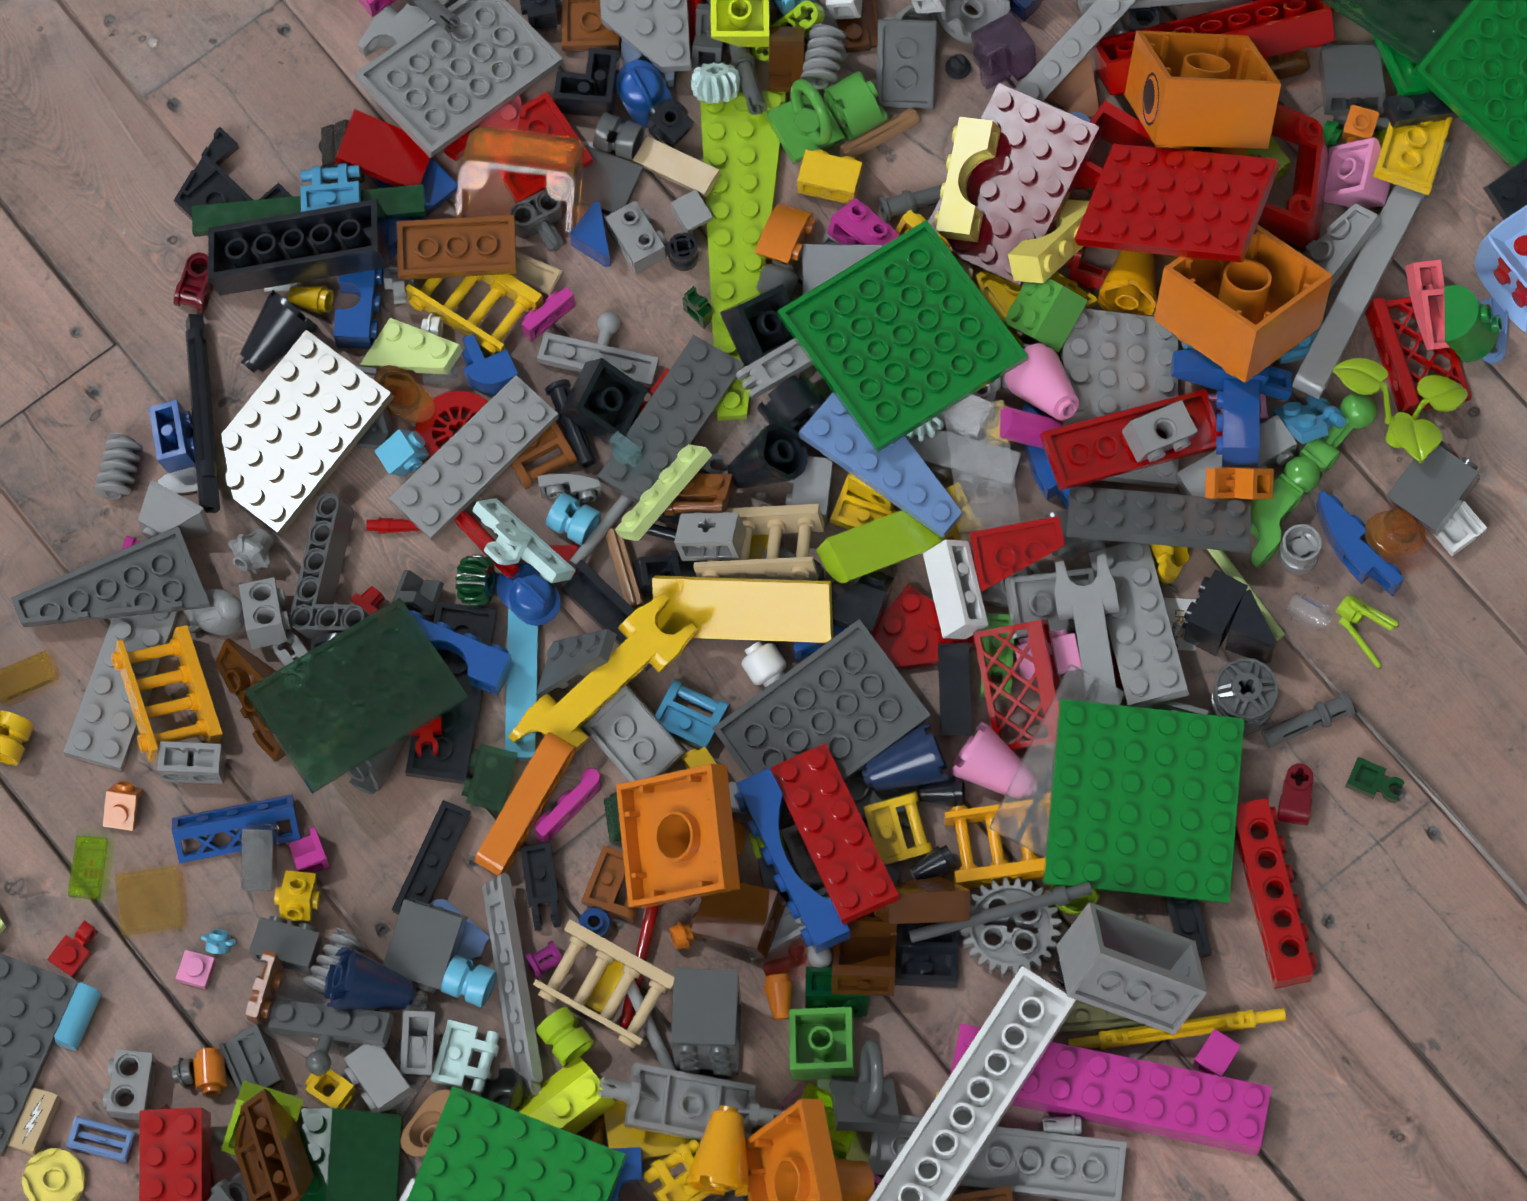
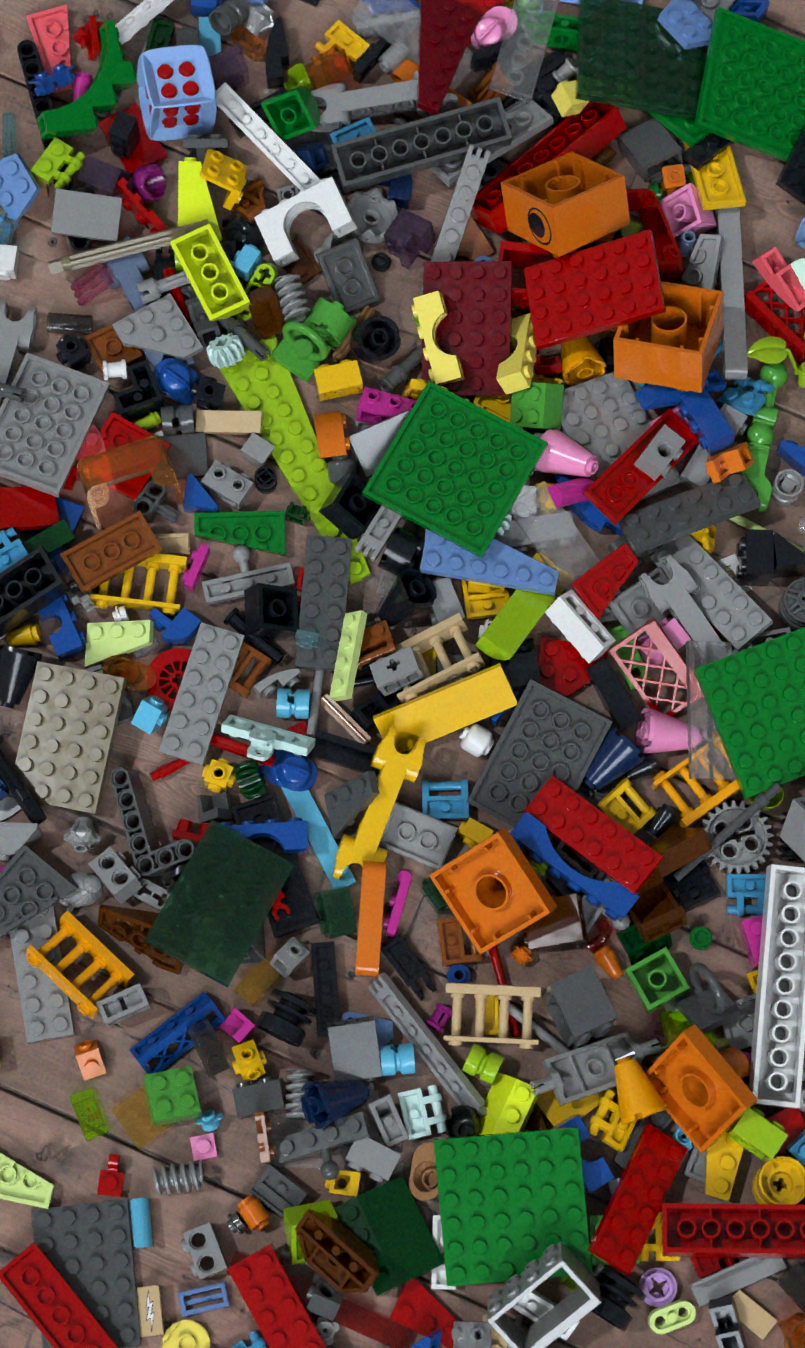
camera: 35 degrees left, 5 degrees up
(146, 988) = (178, 1178): none -> light grey piece
(188, 891) = (171, 1096): none -> bright green brick
(361, 814) = (257, 982): none -> clear yellow tile
(366, 867) = (286, 1017): none -> black wheel
(409, 803) = (289, 957): none -> light grey brick
(437, 565) = (221, 783): none -> yellow brick
(575, 45) = (114, 369): none -> white bush
(584, 124) = (149, 421): none -> lime pin
(636, 301) = (251, 529): none -> green wing
(895, 134) = (387, 339): none -> black brick
(904, 1023) = (700, 938): none -> green plate
(983, 988) = (745, 887): none -> dark azure plate
(1335, 207) = (686, 243): none -> sand blue cone

